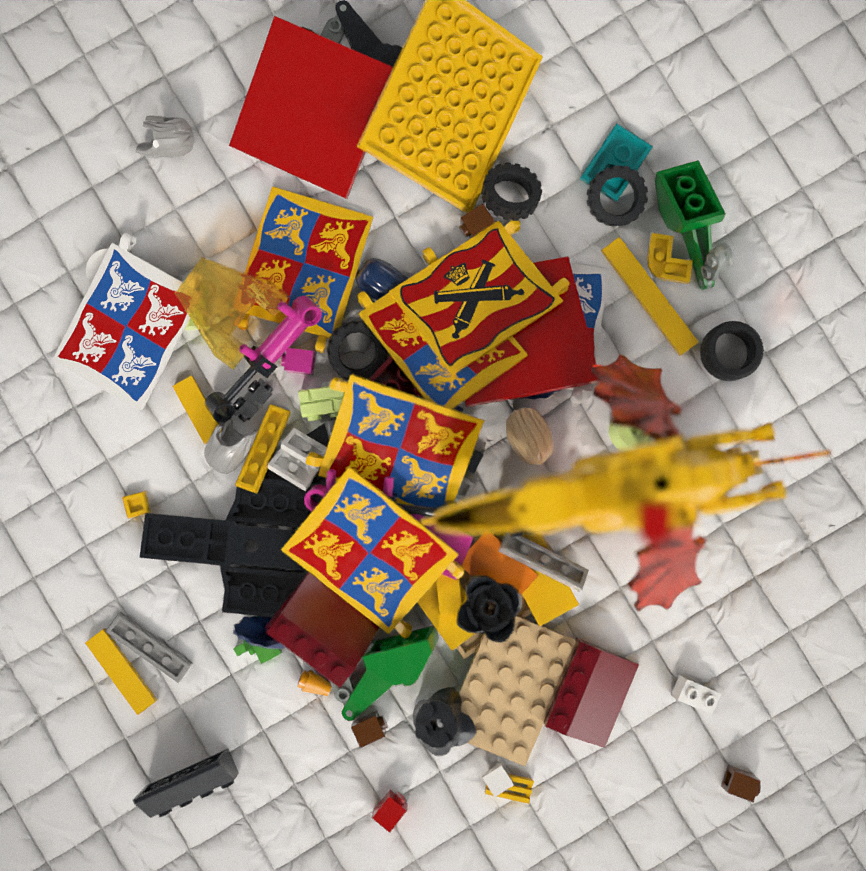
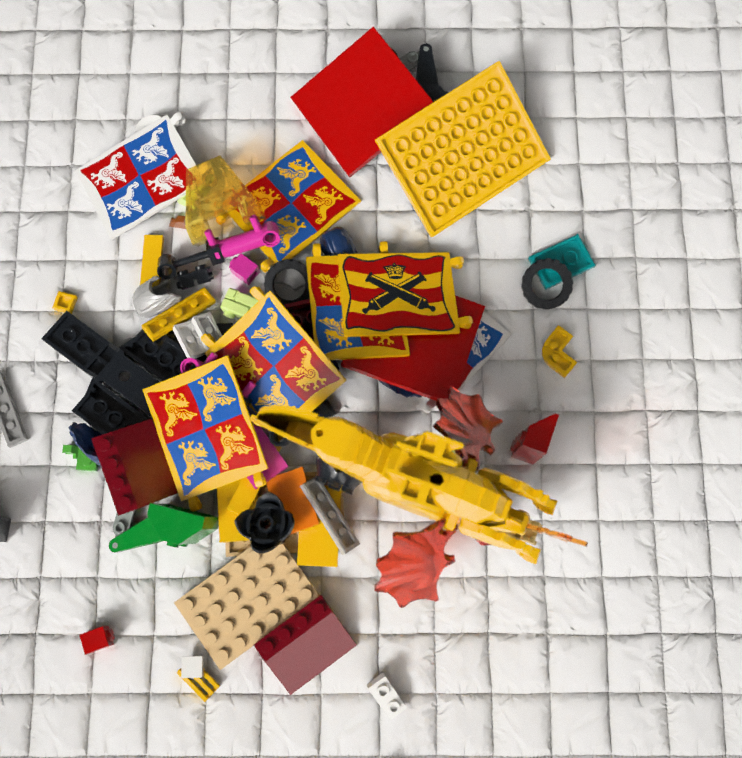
camera: 30 degrees right, 10 degrees down
(170, 137) = (251, 68): light grey hair -> none
(200, 350) = (179, 222): none -> tile
(314, 683) = (104, 507): light orange cone -> none
(369, 728) = (122, 566): reddish brown brick -> none
(457, 726) = (186, 601): black brick -> none
(475, 221) = (432, 243): reddish brown brick -> none
(516, 174) = (477, 224): black tyre -> none
(529, 436) = (377, 413): tan hair -> none
(649, 296) = (529, 368): yellow tile -> none
(654, 522) = (405, 489): red brick -> none
(690, 208) = (595, 317): green slope -> none
(703, 367) = (534, 440): none -> red slope
(750, 338) = (588, 441): black tyre -> none

